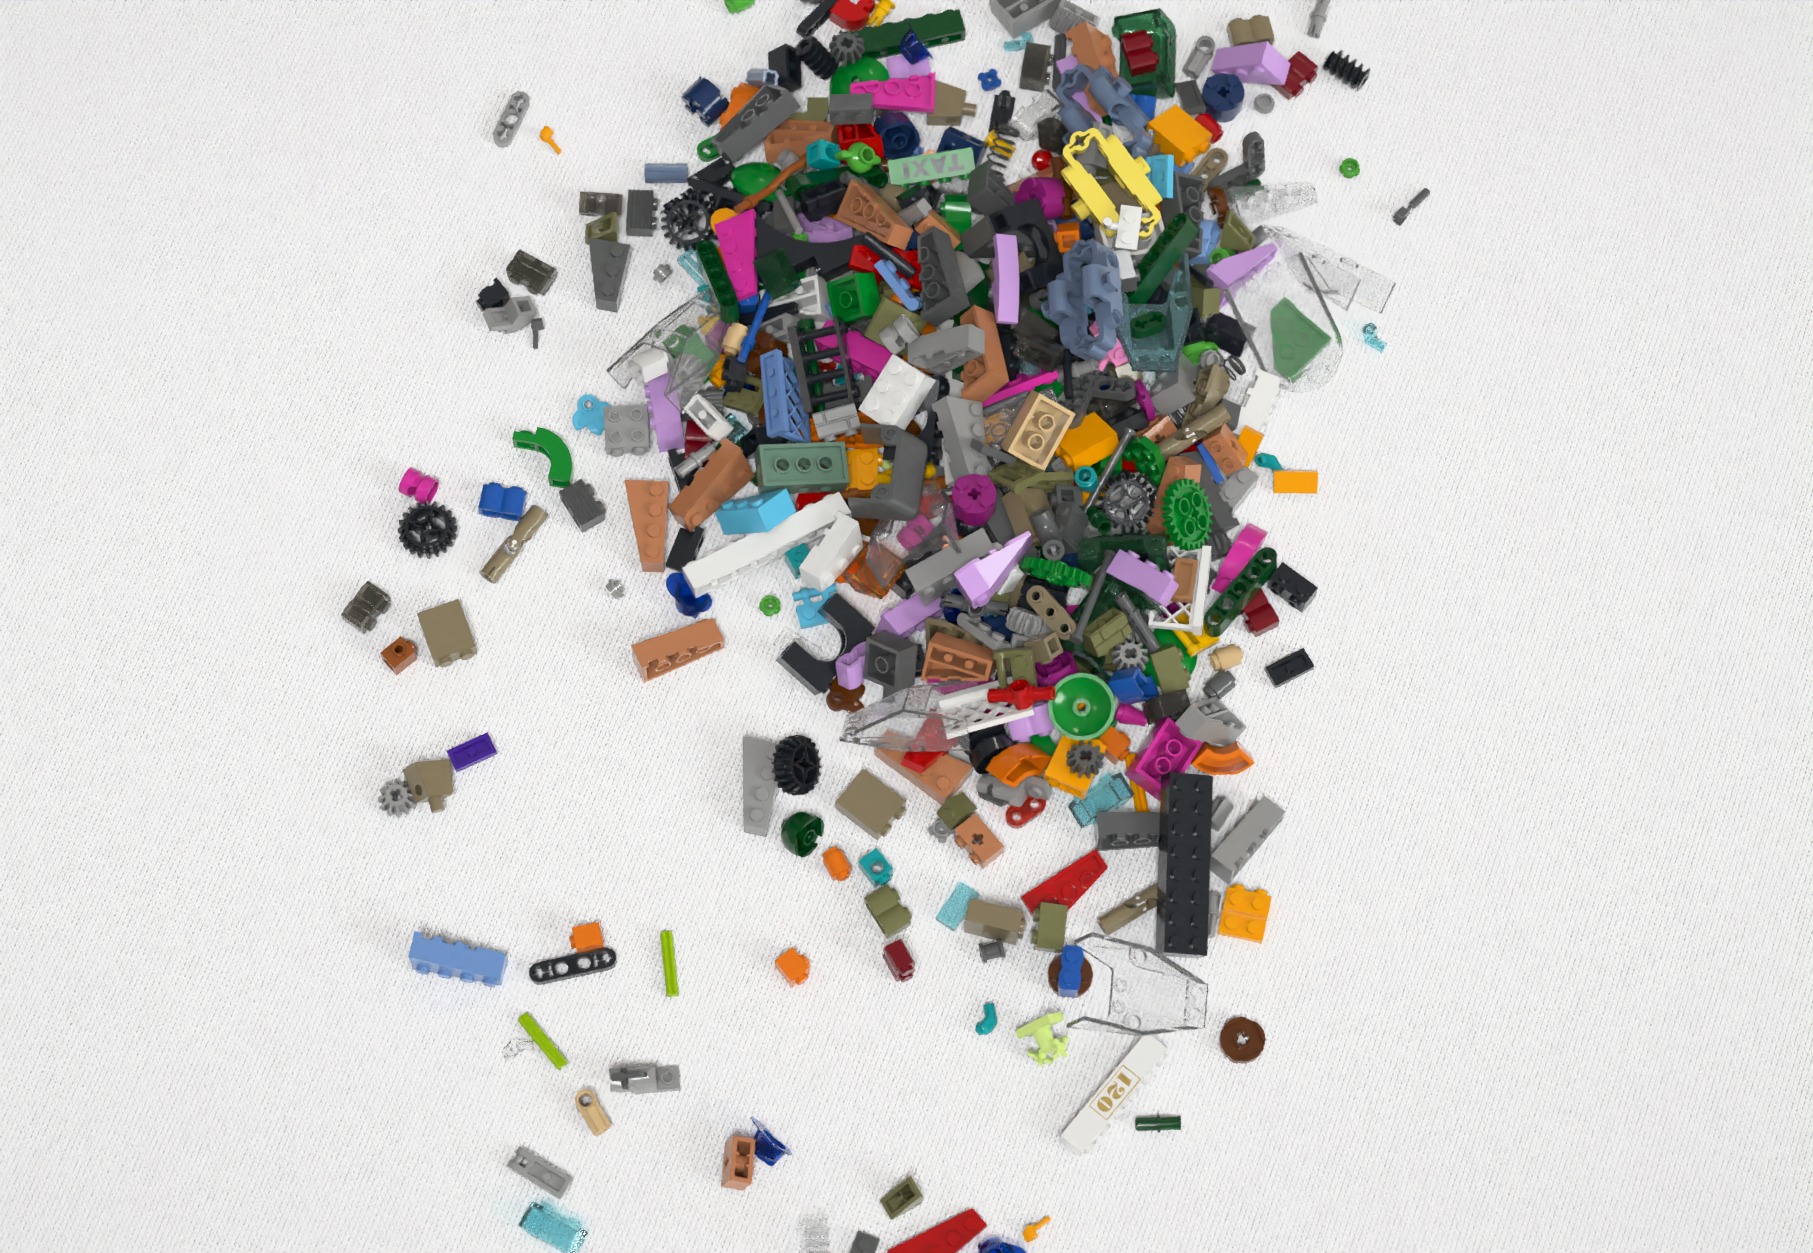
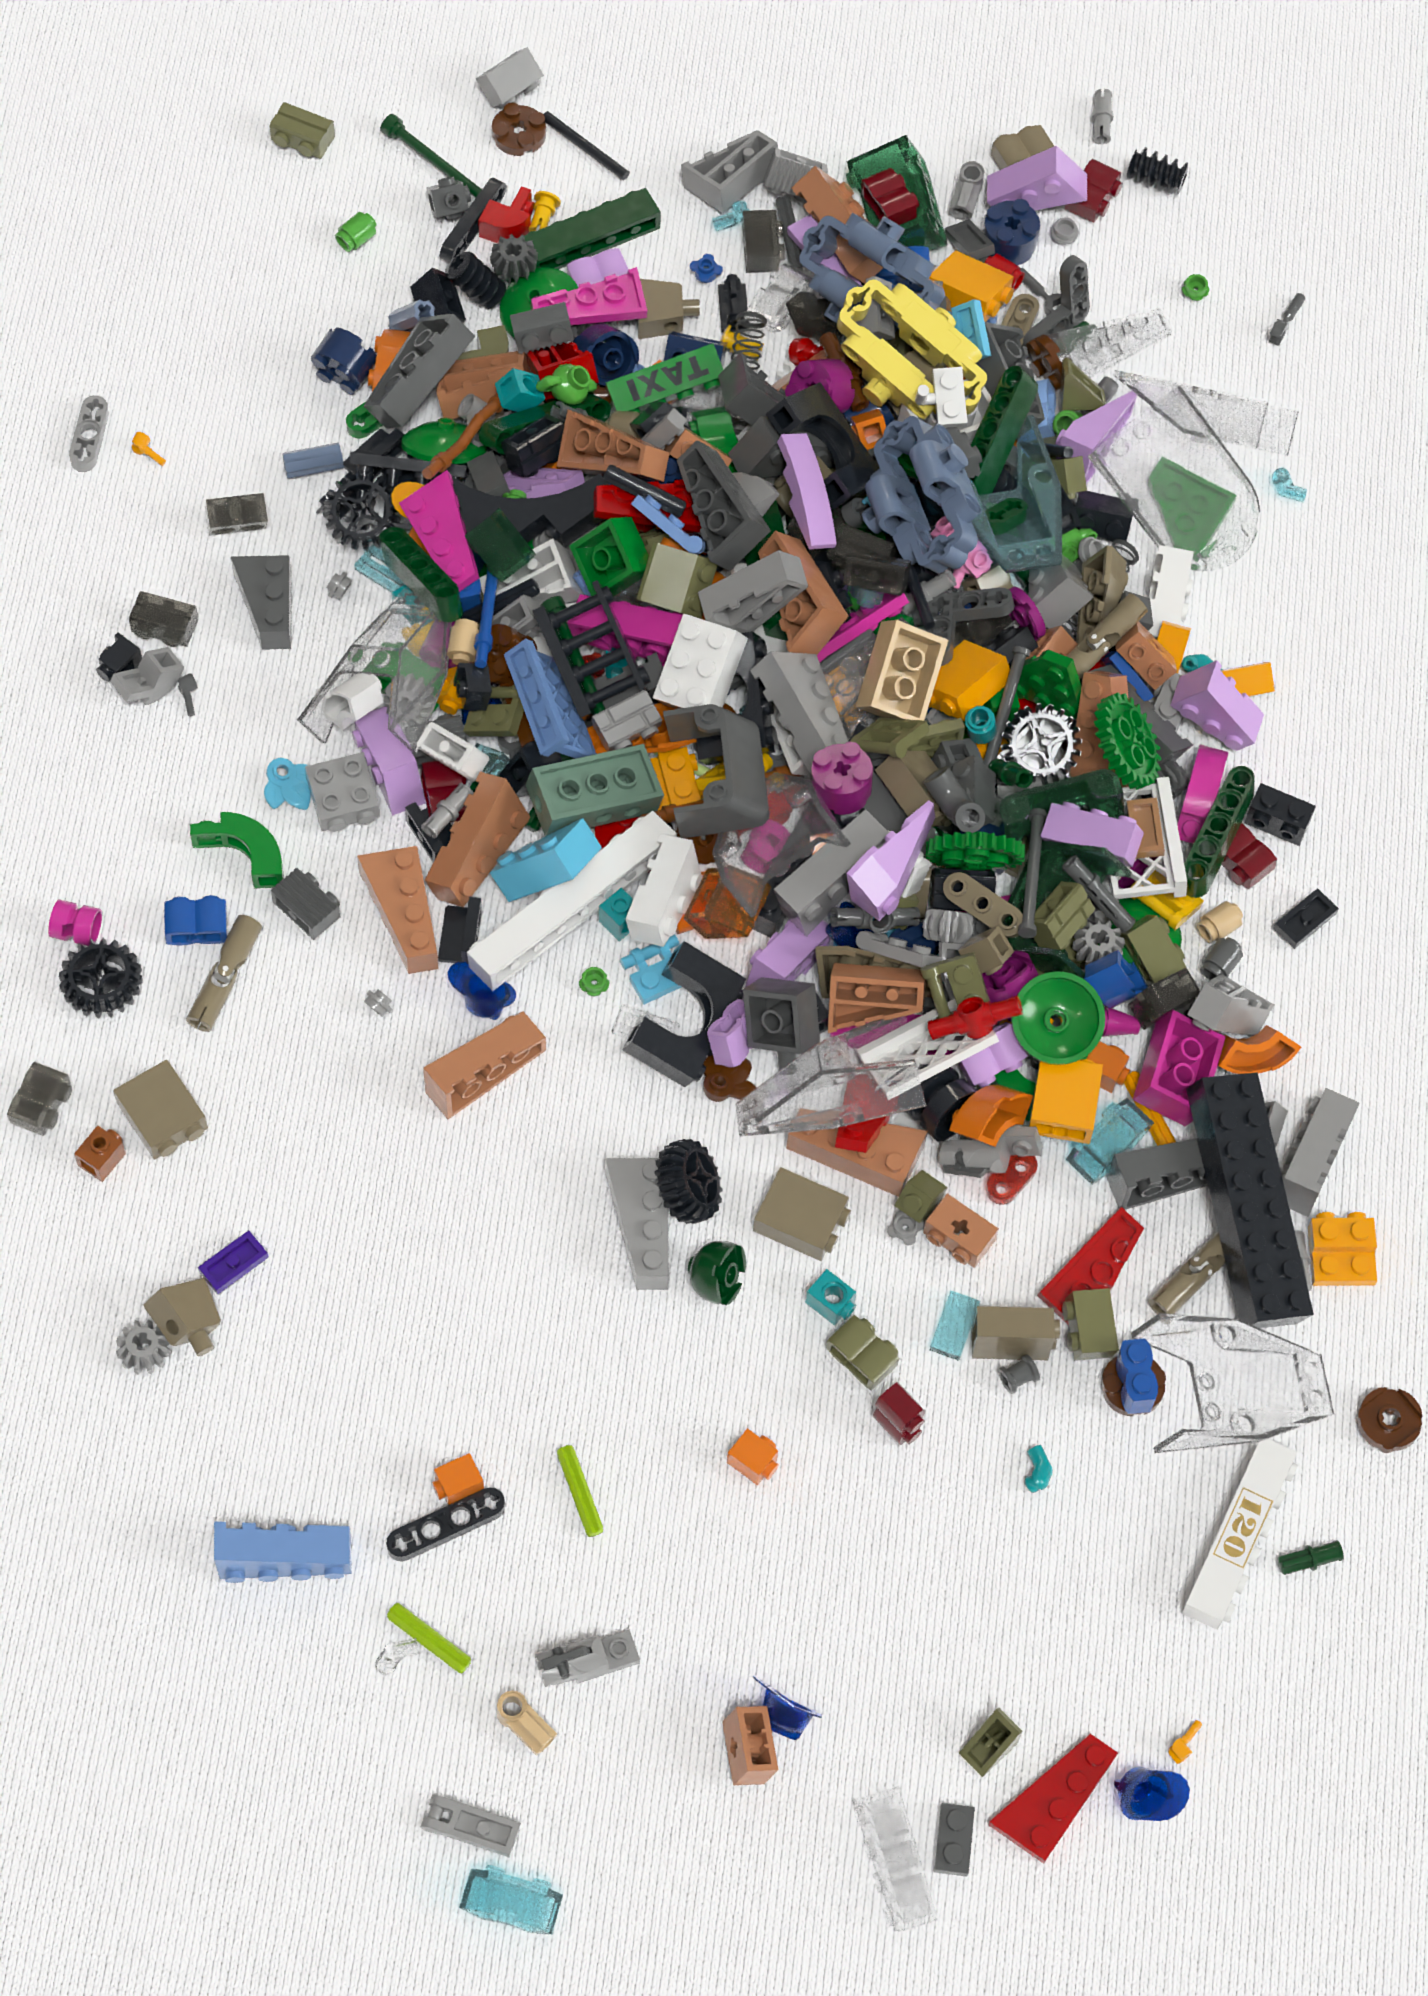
camera: 15 degrees left, 5 degrees down
(603, 228) = (247, 542): olive slope -> none
(640, 213) = (291, 516): dark grey brick -> none
(789, 212) = (494, 469): light grey bar -> none
(836, 864) = (776, 1303): orange brick -> none
(901, 332) = (687, 585): light grey wheel -> none
(912, 48) = (601, 240): clear blue piece -> none
(993, 450) = (850, 710): dark grey plate -> none
(1046, 1042) = (1127, 1476): yellowish green piece -> none
(1085, 752) = (1071, 1090): dark grey gear -> none
(1232, 146) = (1039, 290): none -> dark grey piece
(1267, 499) = (1218, 706): none -> lavender wedge

